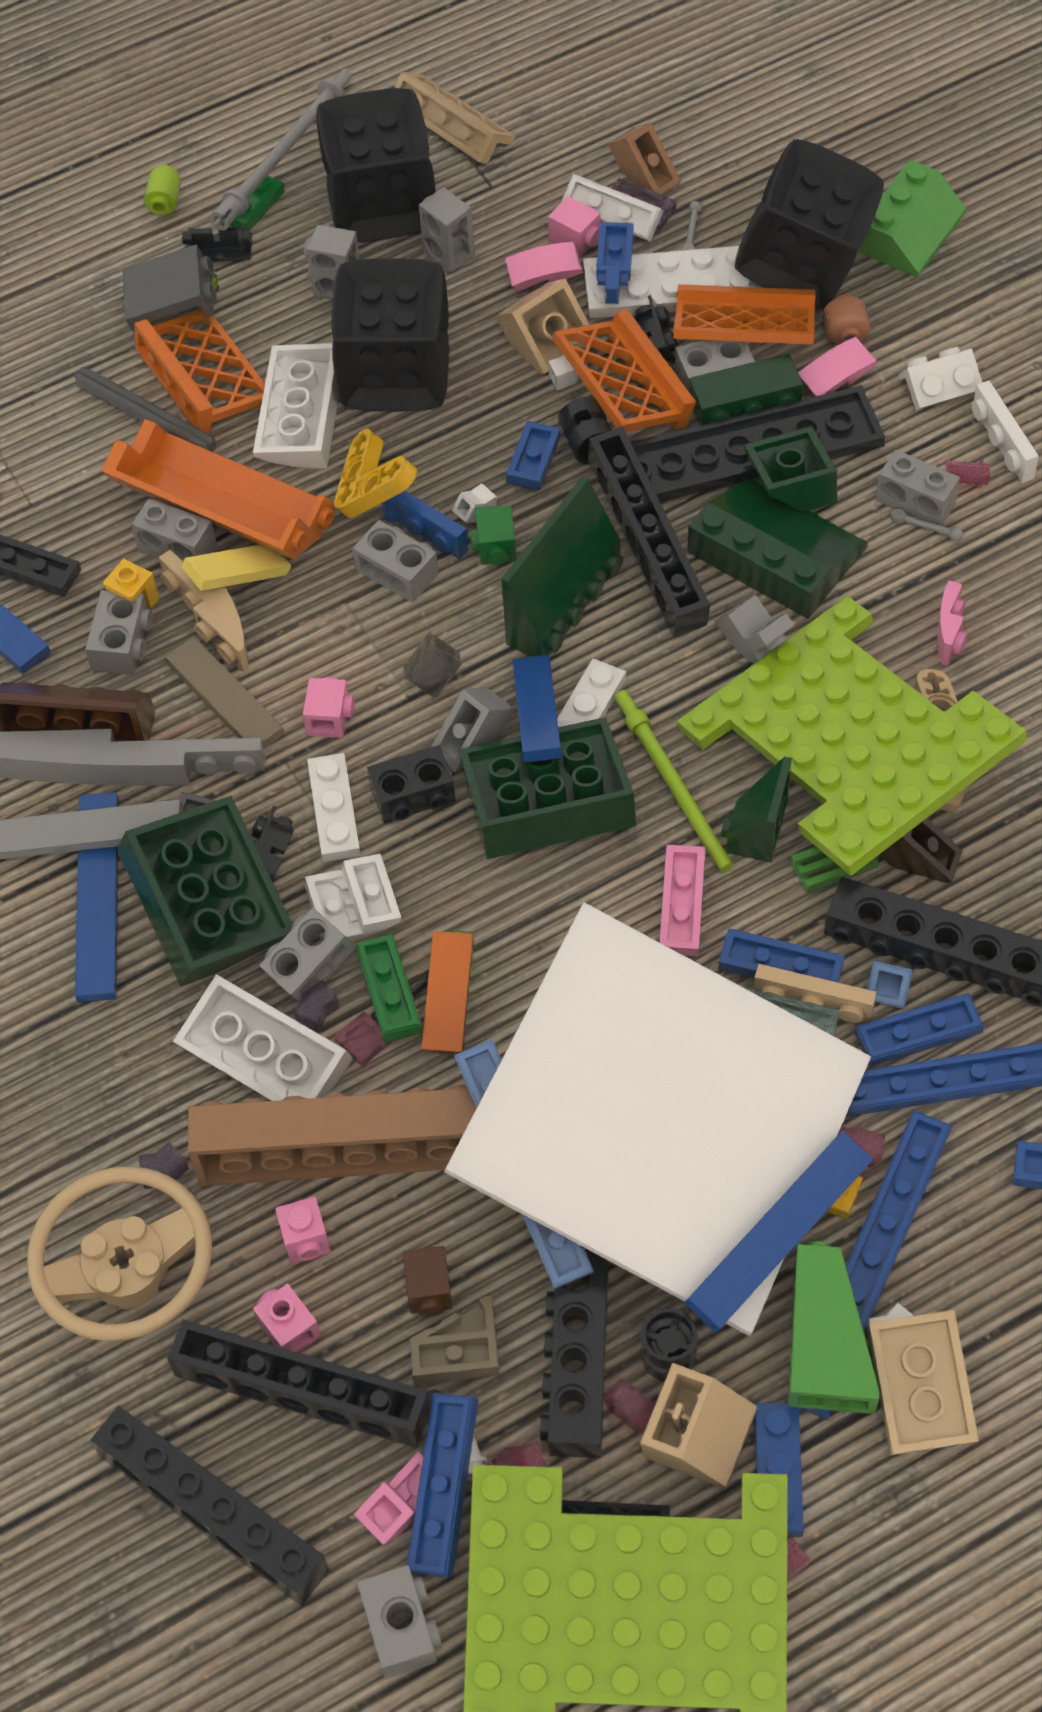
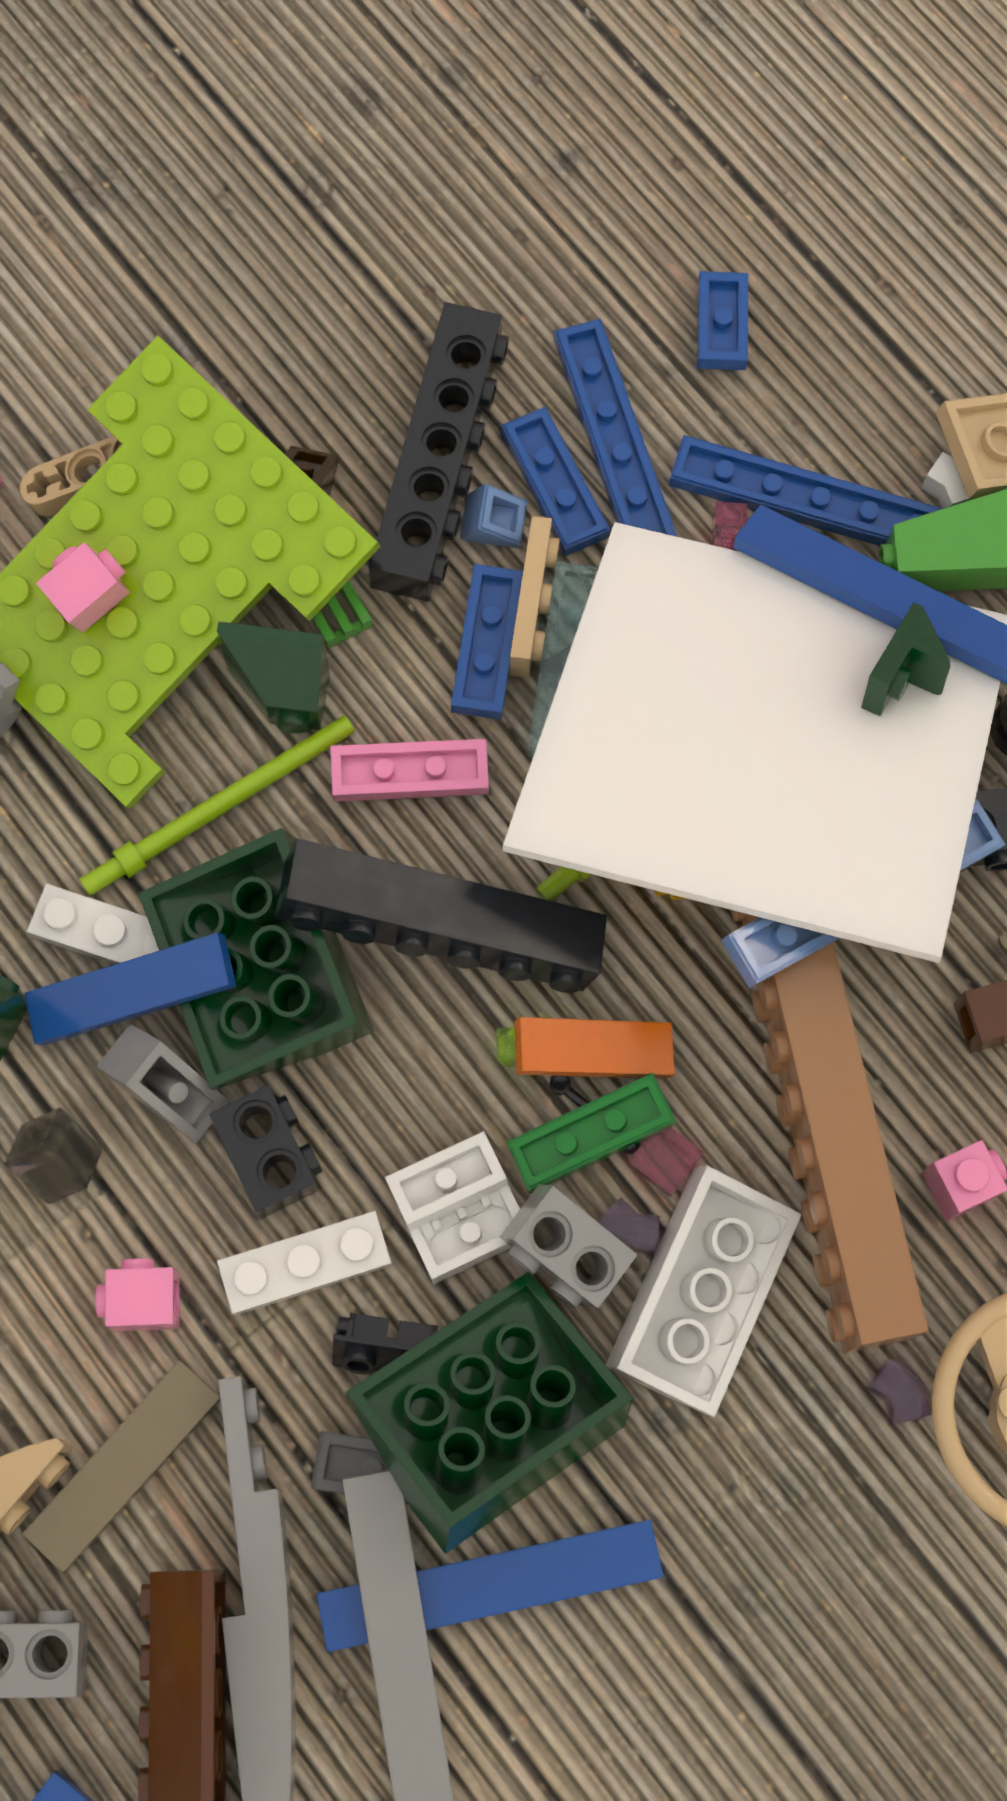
camera: 105 degrees left, 15 degrees up
(554, 885) = (440, 917): none -> black brick
(716, 1219) = (910, 657): none -> dark green slope
(830, 680) = (84, 585): none -> bright pink brick

